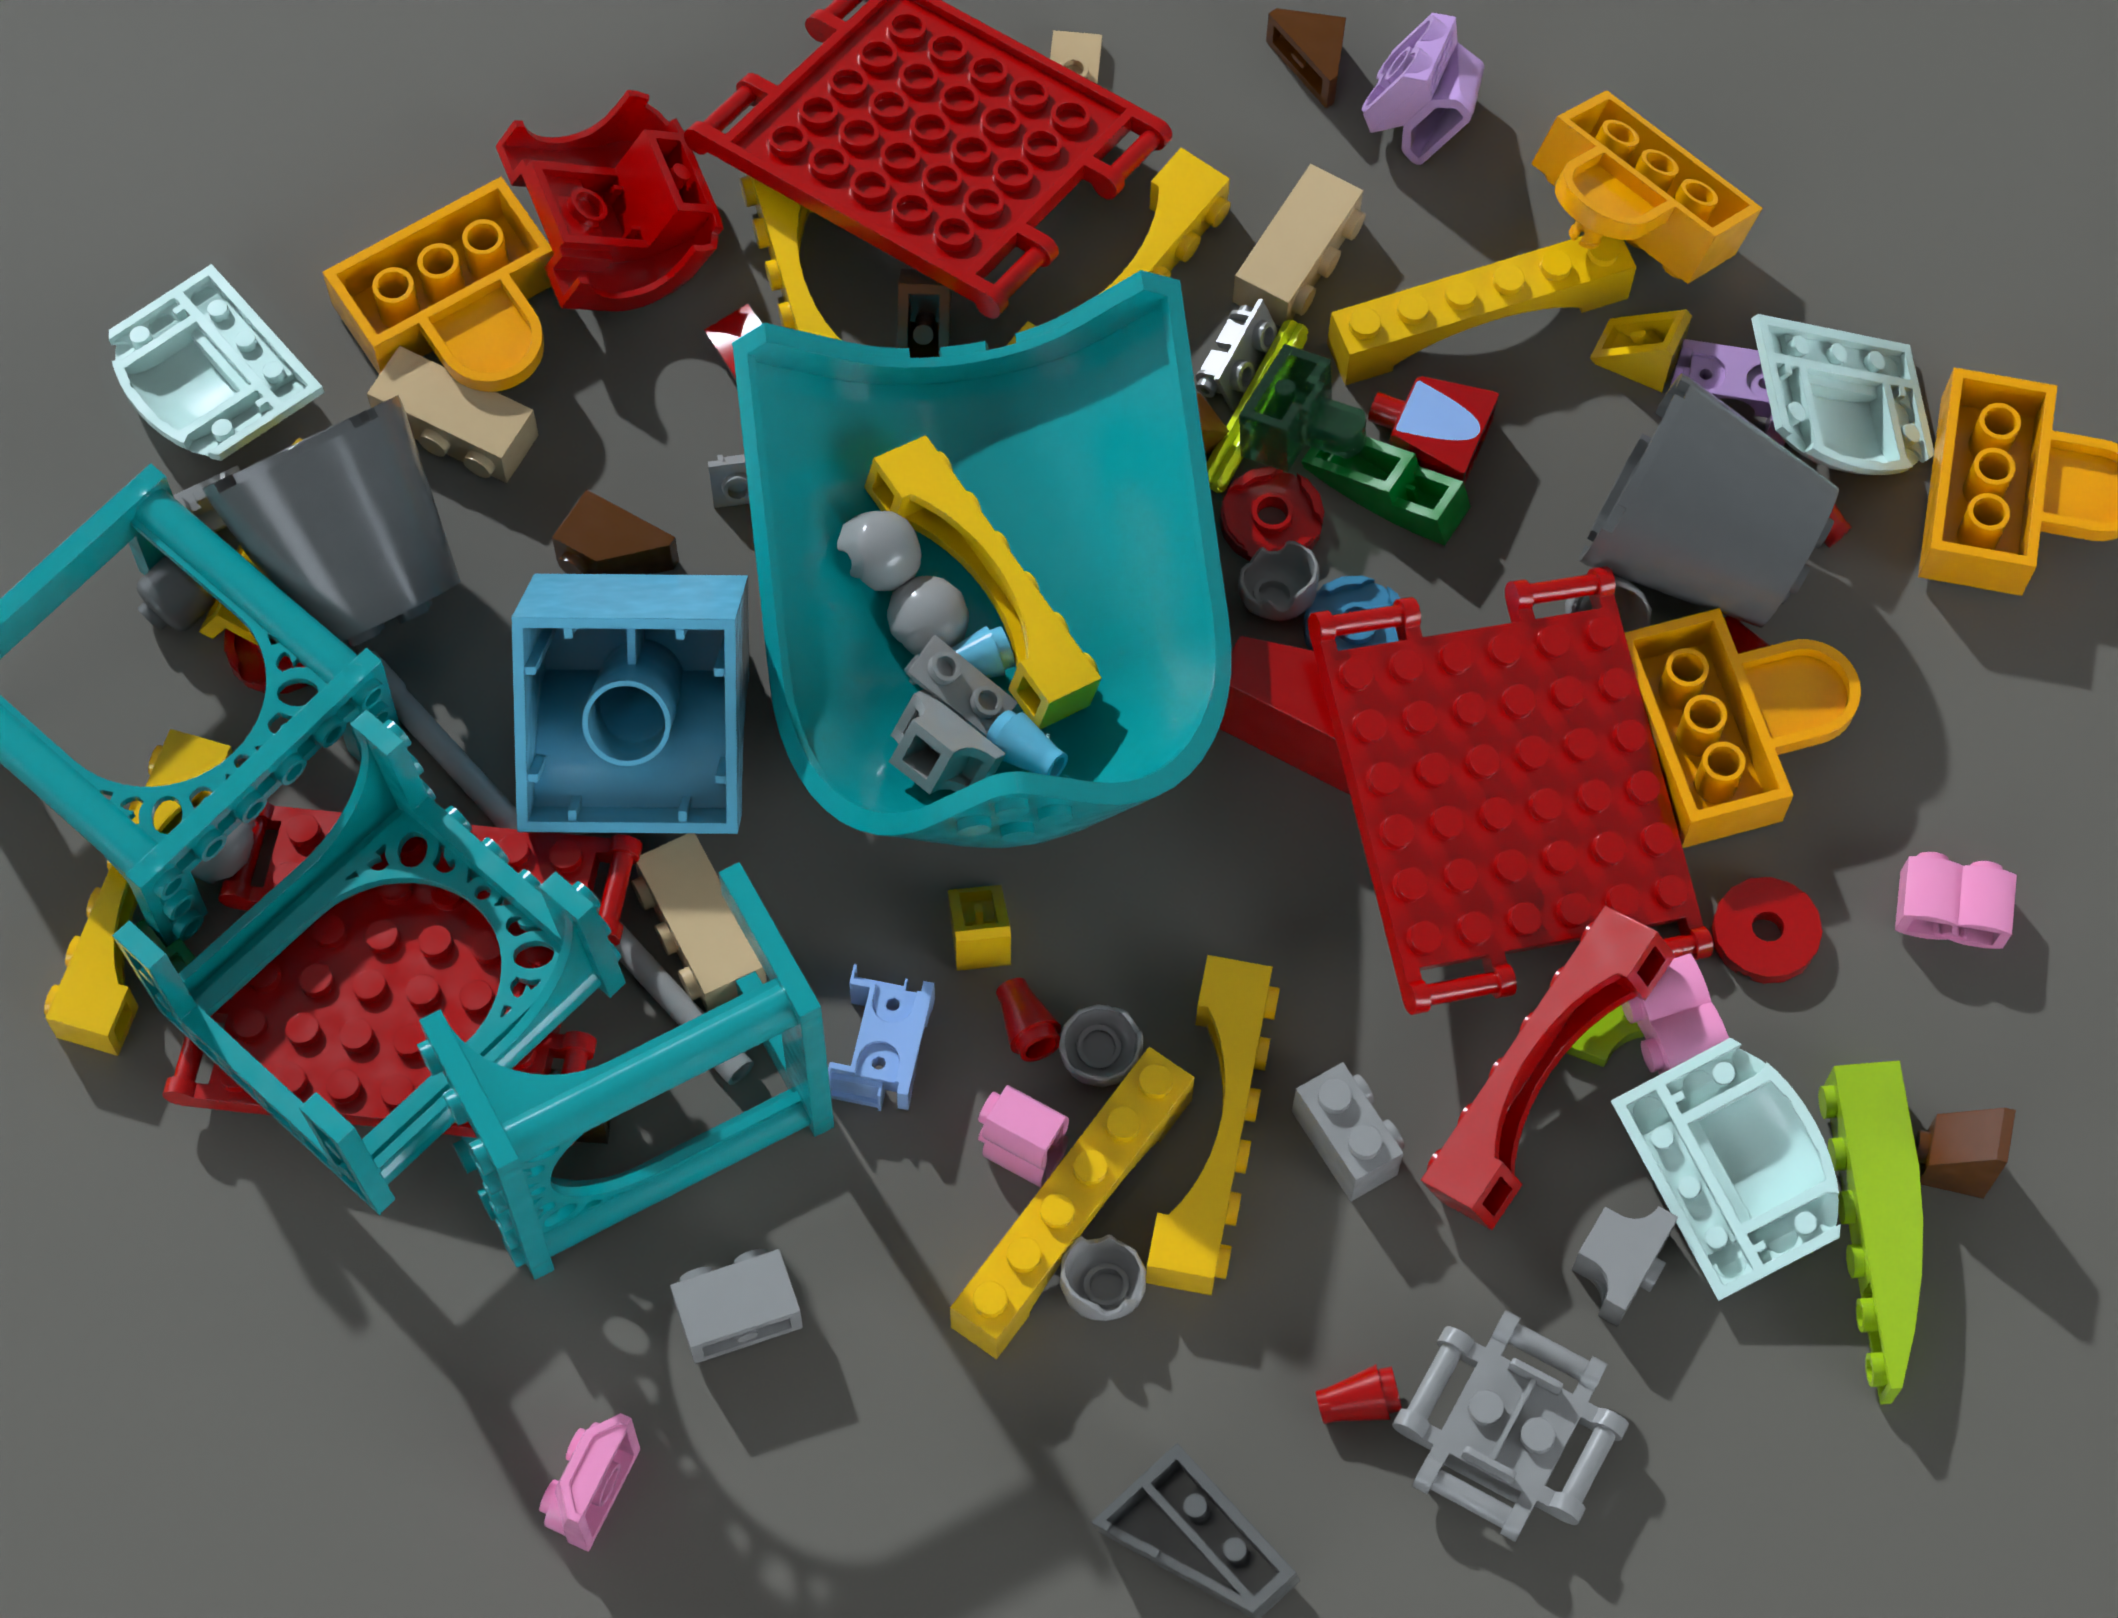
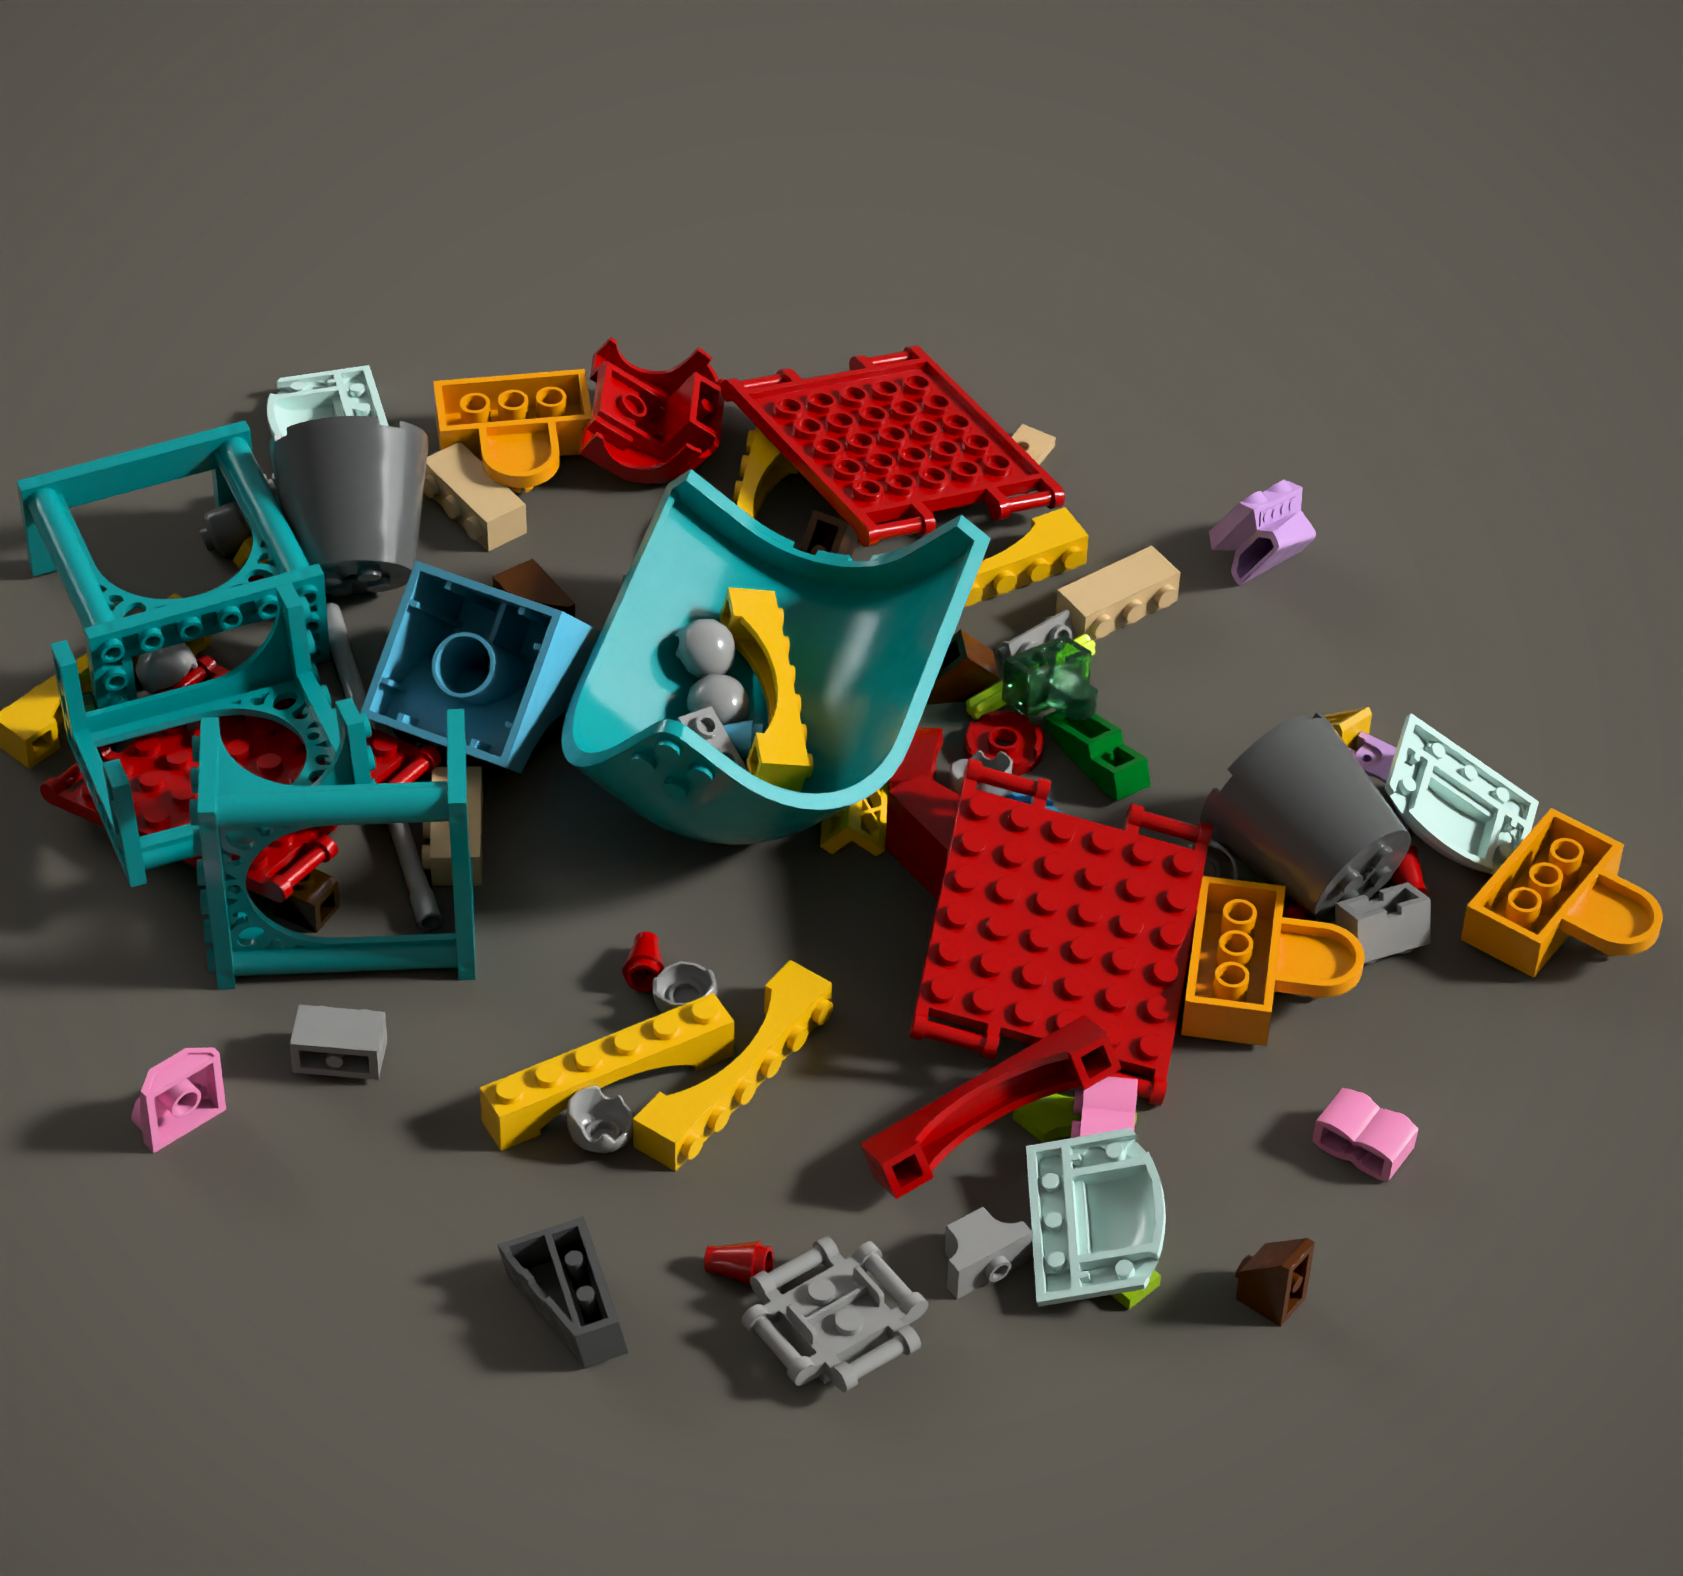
camera: 25 degrees right, 20 degrees down
(887, 1038) = (532, 936): light blue piece -> none
(980, 927) = (643, 901): yellow slope -> none
(1023, 1135) = (593, 1006): bright pink brick -> none
(1309, 47) = (1200, 489): reddish brown slope -> none
(1348, 1131) = (828, 1102): light grey brick -> none
(1386, 330) = (1308, 671): yellow arch -> none
(1438, 423) = (1157, 727): red torso -> none
(1643, 188) = (1384, 633): light orange brick -> none
(1773, 901) = (1214, 1085): red tile -> none
(1841, 598) = (1387, 924): none -> light grey brick
(1883, 1209) = (1191, 1293): lime slope -> none

